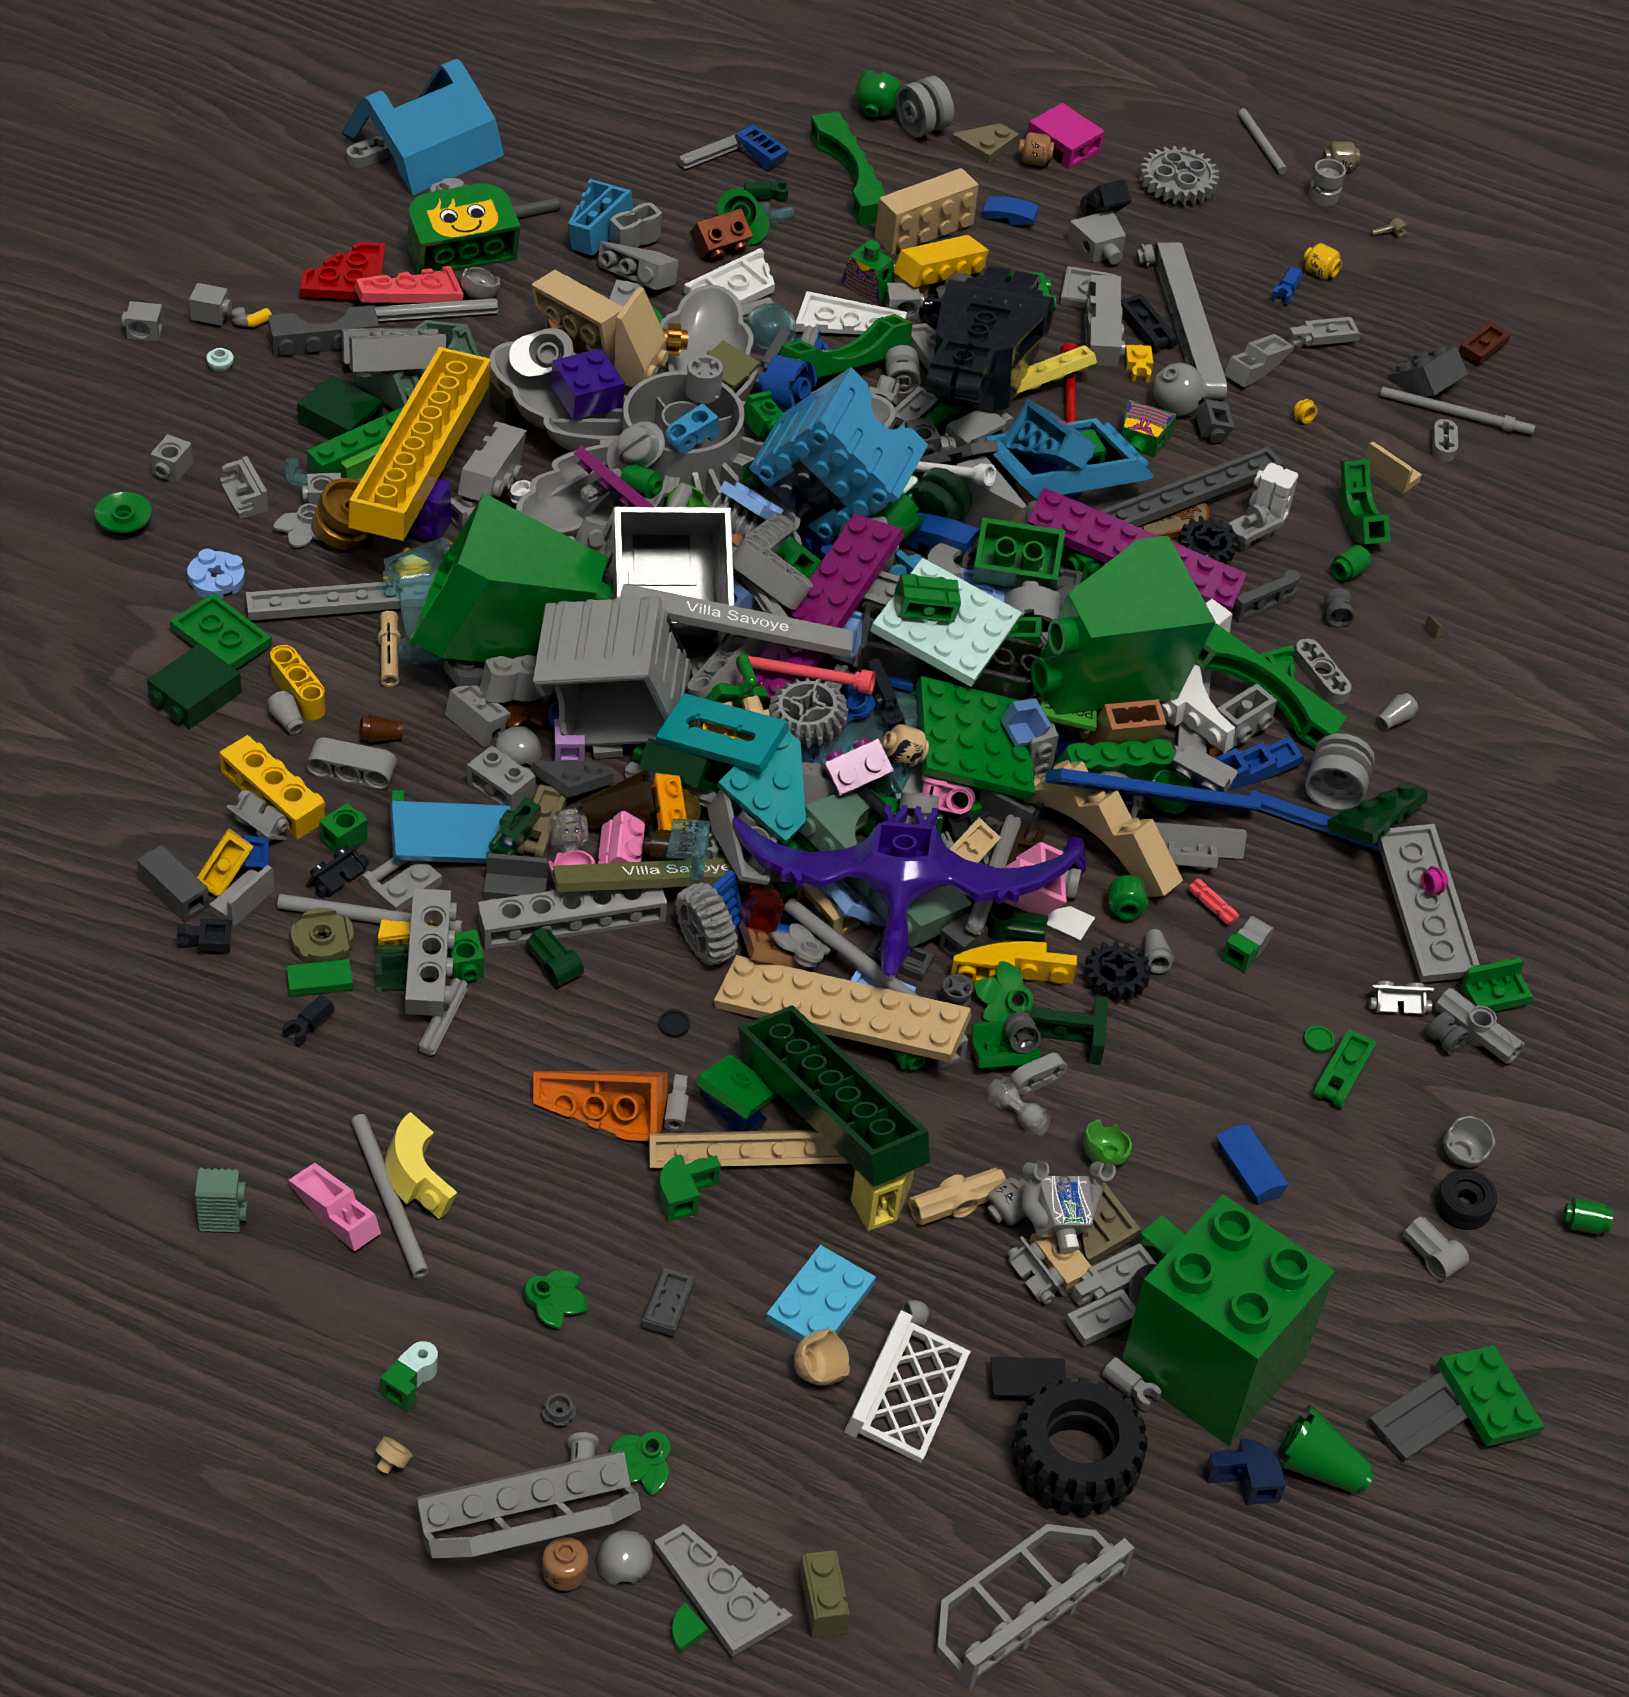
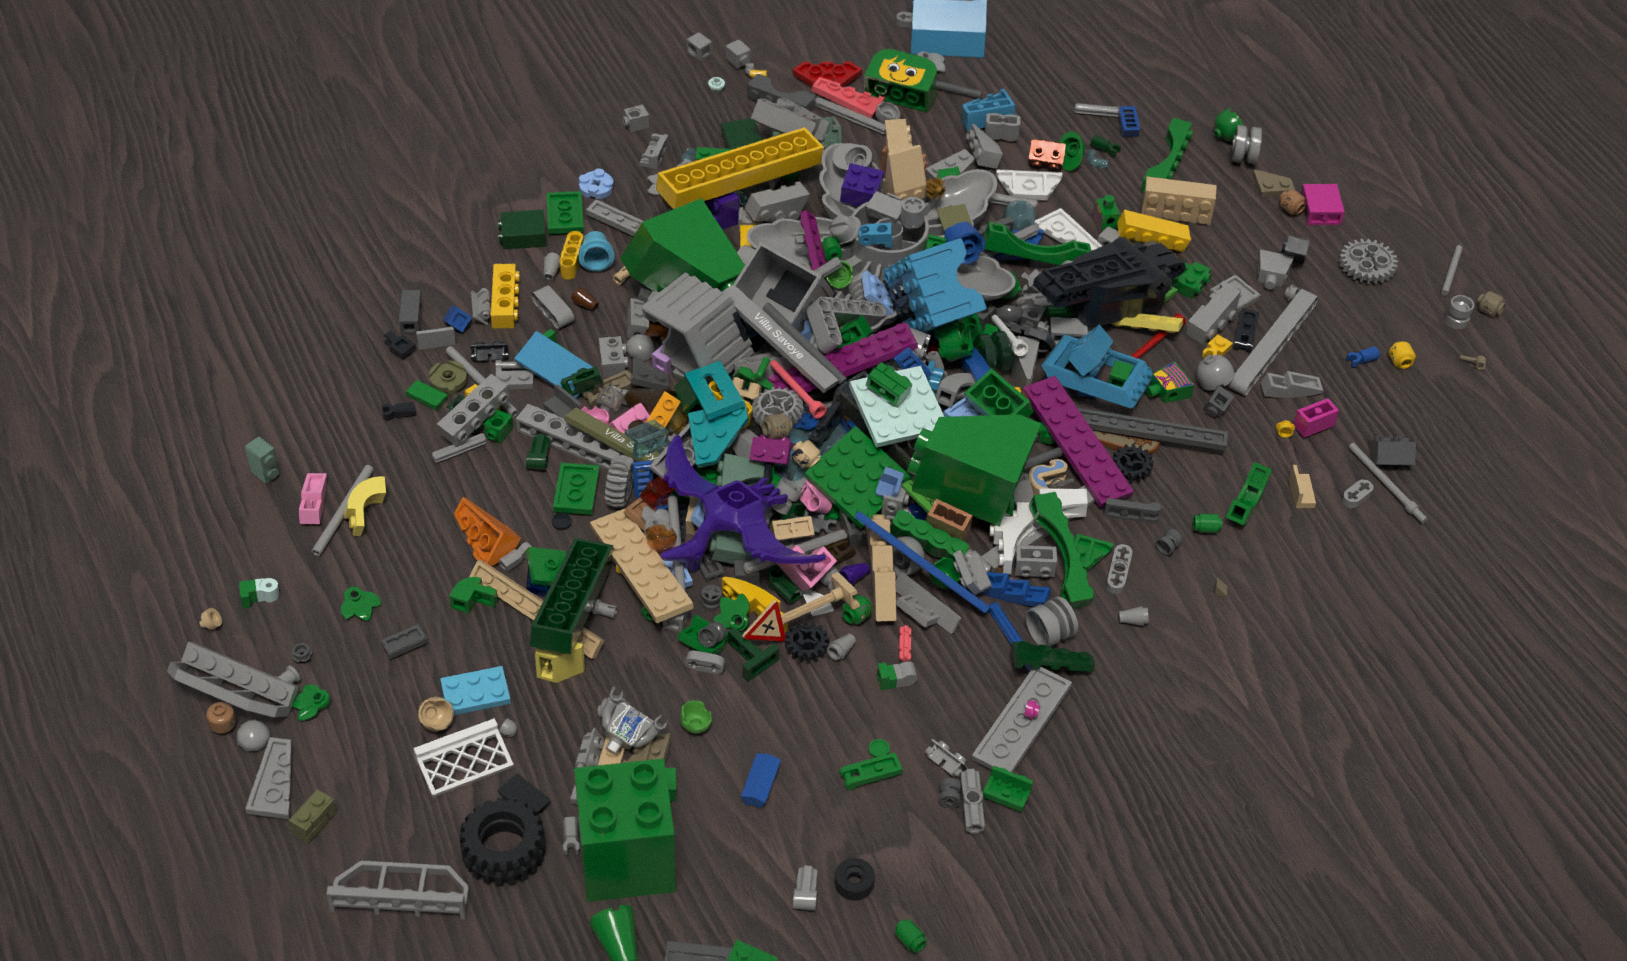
camera: 45 degrees right, 0 degrees up
(123, 512) = (584, 131): green dish -> none
(224, 862) = (439, 314): yellow slope -> none
(331, 657) = (596, 252): none -> medium azure piece
(343, 828) = (513, 334): green brick -> none
(650, 970) = (576, 488): none -> green plate
(653, 392) = (885, 206): none -> light grey piece
(687, 1628) = (242, 786): green tile -> none
(749, 602) = (798, 337): none -> dark grey piece
(841, 958) = (659, 537): none -> clear orange hair
(846, 730) = (777, 426): none -> dark tan head
(902, 559) = (913, 361): none -> blue slope
(955, 1196) = (591, 690): tan piece -> none
(1016, 210) = (1240, 228): blue slope -> none
(1030, 1116) = (675, 679): clear piece -> none
(1101, 883) = (770, 623): none -> tan piece
(1253, 1466) = (577, 917): dark blue brick -> none
(1254, 525) = (1170, 469): light grey hips -> none
(1275, 490) = (1199, 459): white brick -> none
(1324, 332) = (1353, 393): light grey hinge -> none
(1326, 378) = (1316, 417): none -> dark pink brick
(1468, 1141) = (888, 851): light grey hair -> none
(1484, 343) = (1453, 455): copper plate -> none

